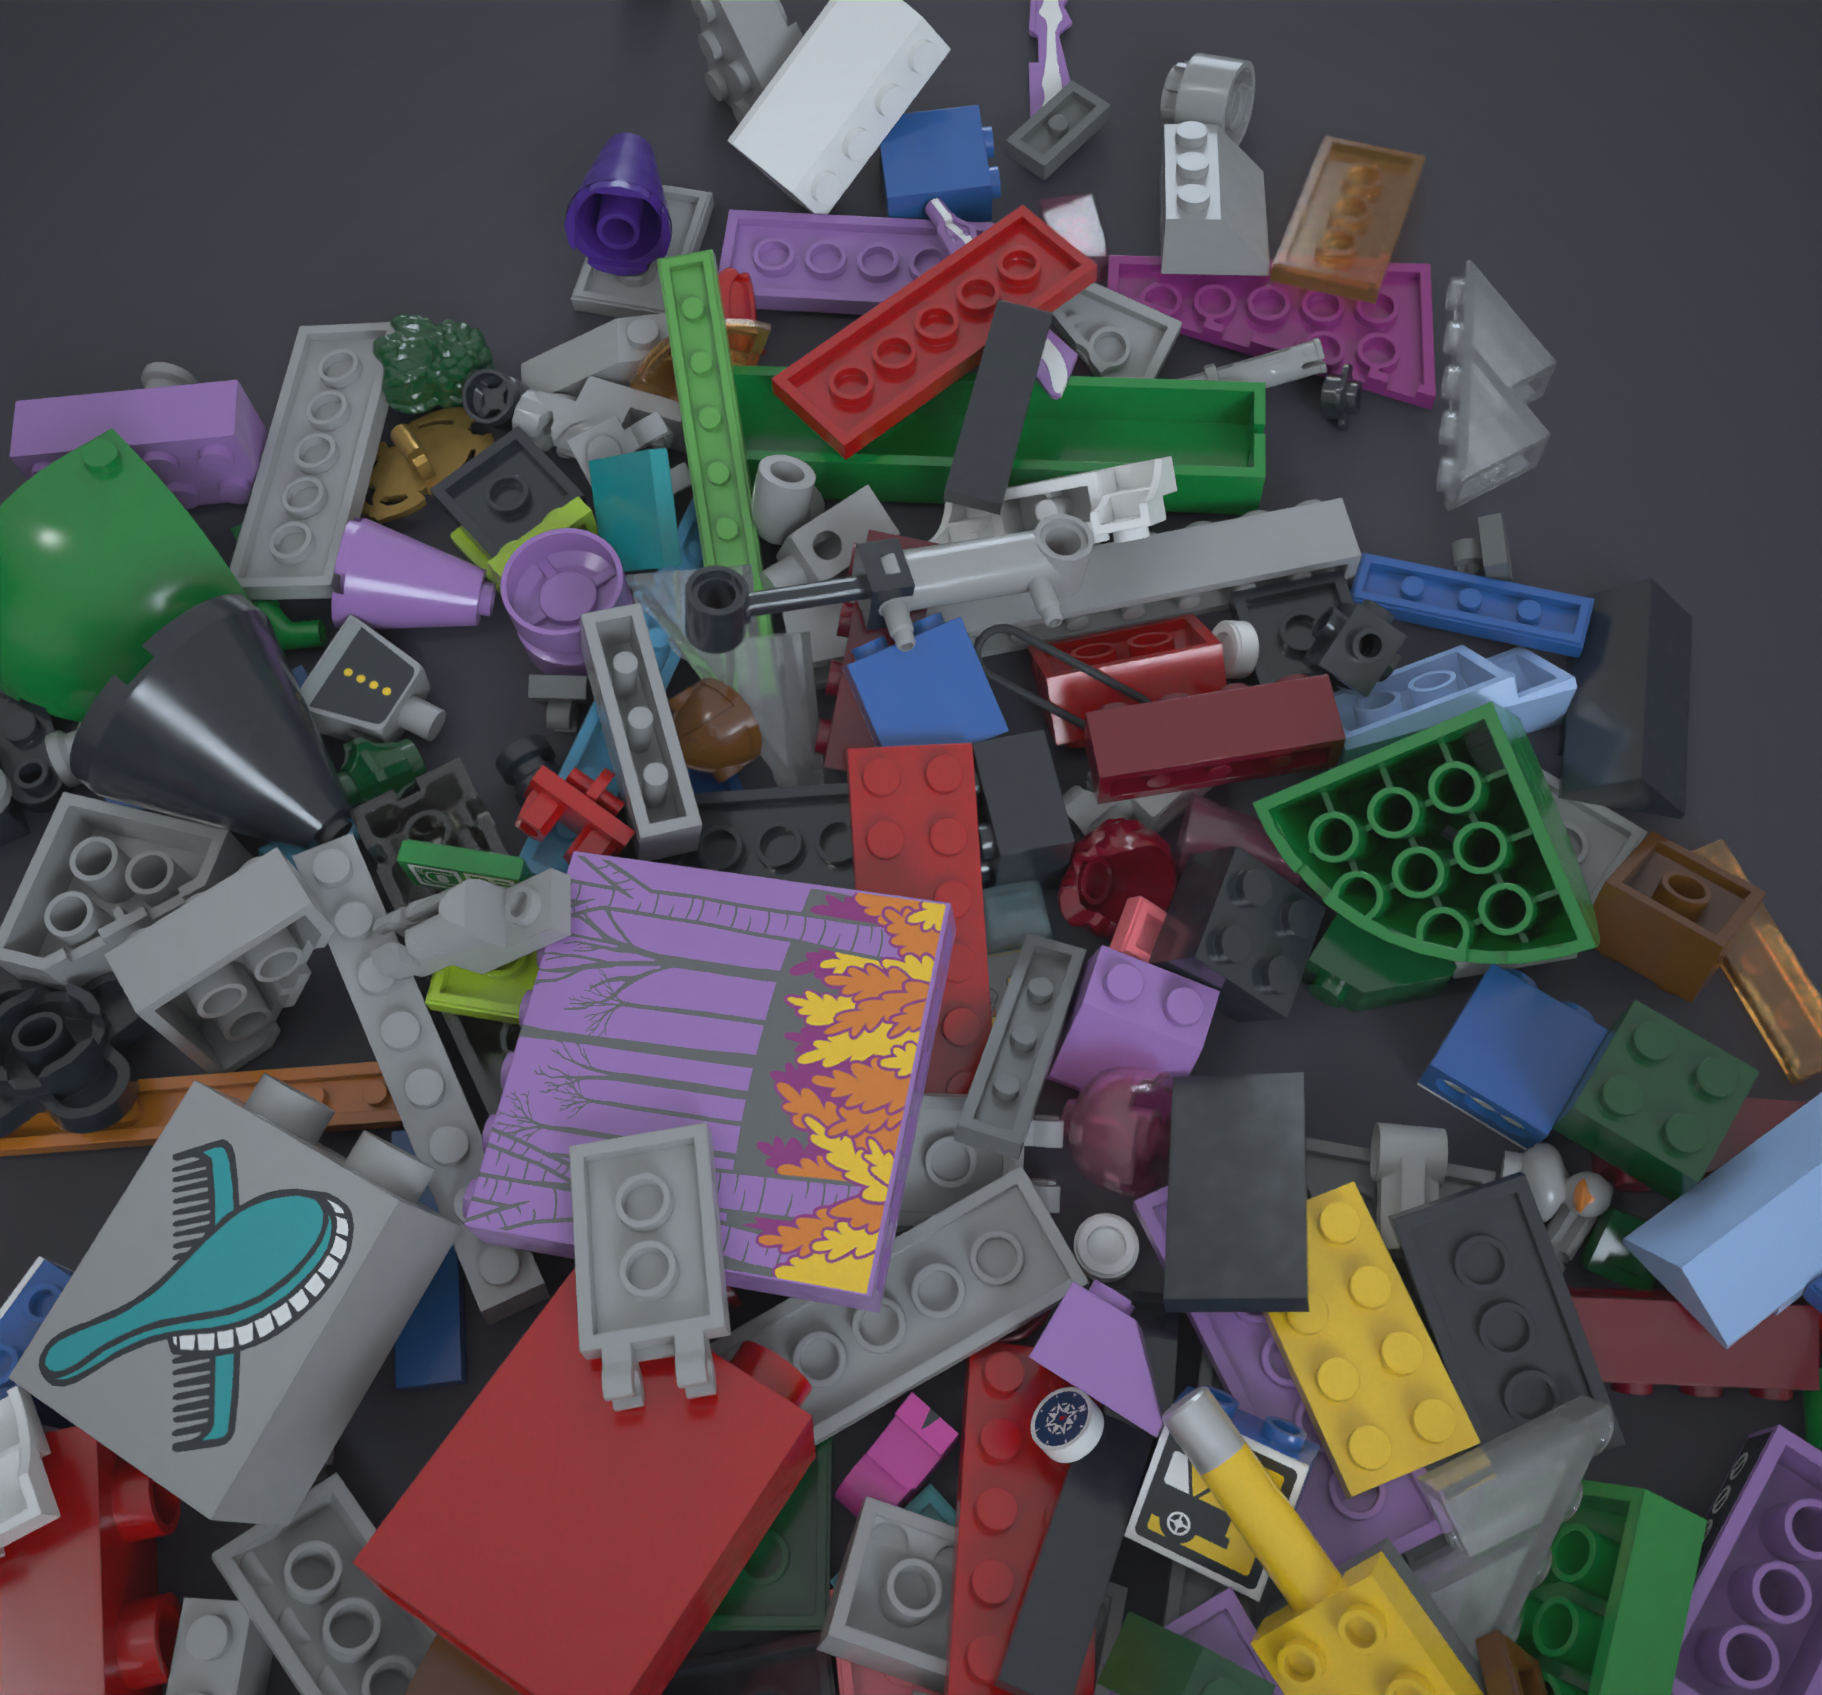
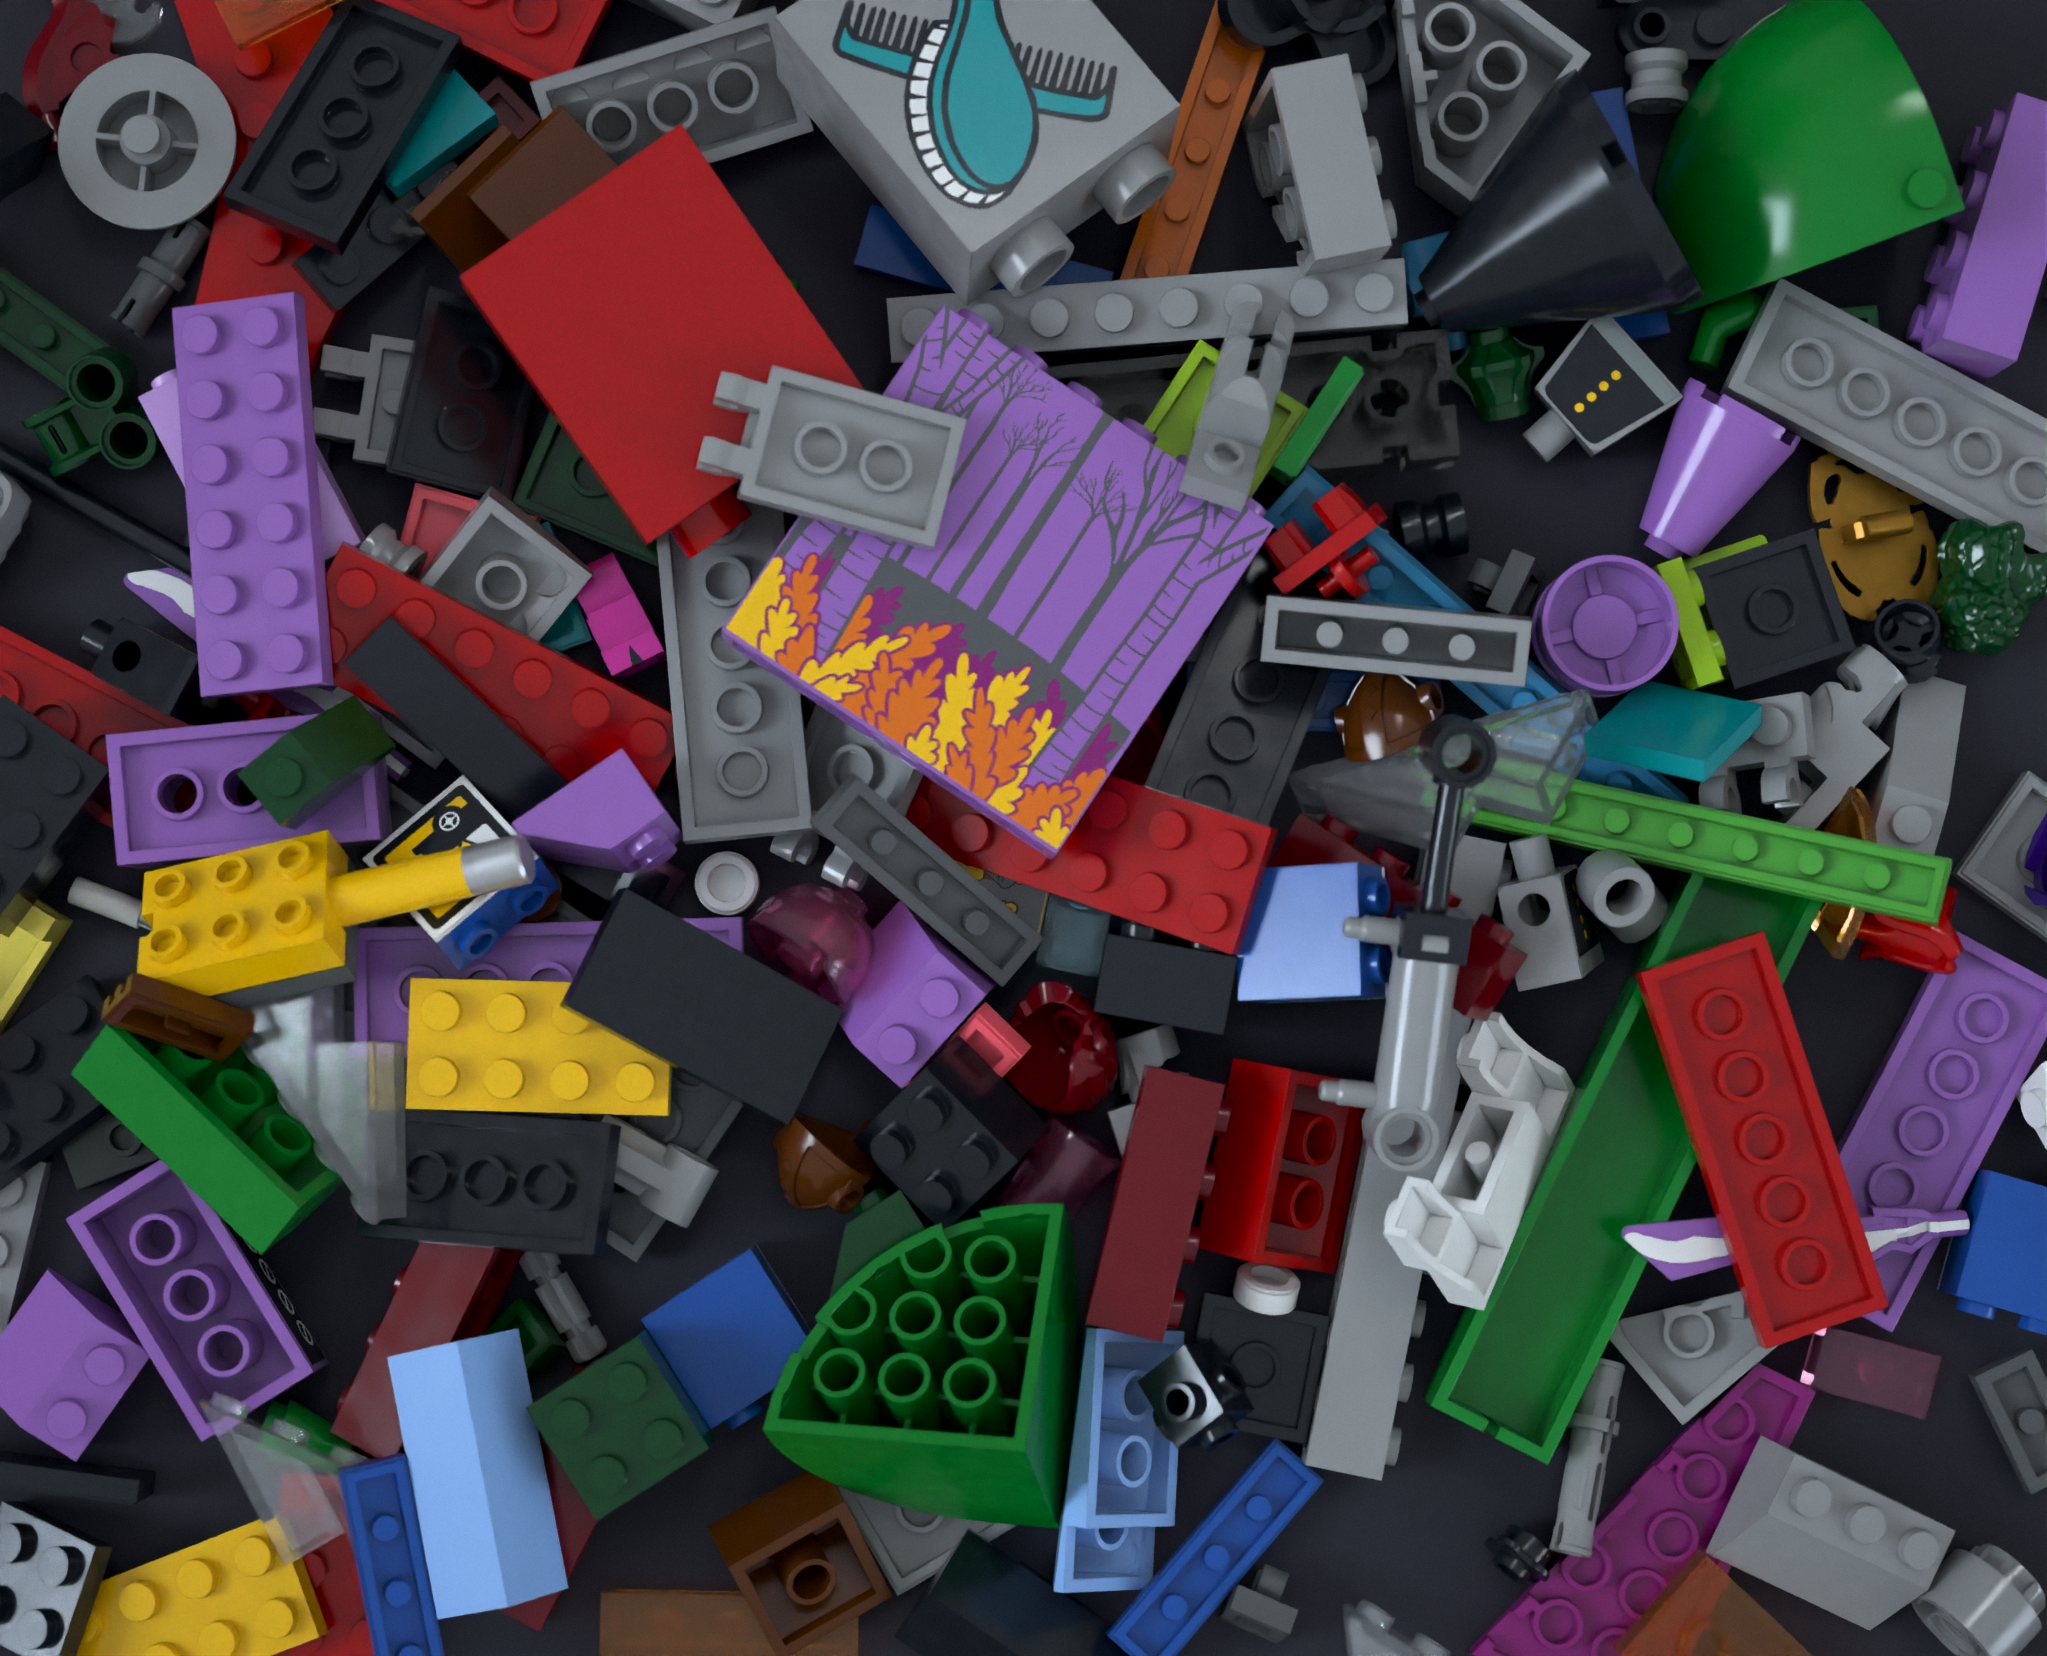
camera: 105 degrees right, 20 degrees up
(998, 407) = (1620, 1156): black tile -> none
(1053, 651) = (1302, 1089): black piece -> none
(1067, 1425) = (567, 760): tile -> none
(1320, 1040) = (821, 1165): none -> reddish brown helmet
(1549, 1181) = (608, 1298): light grey animal -> none

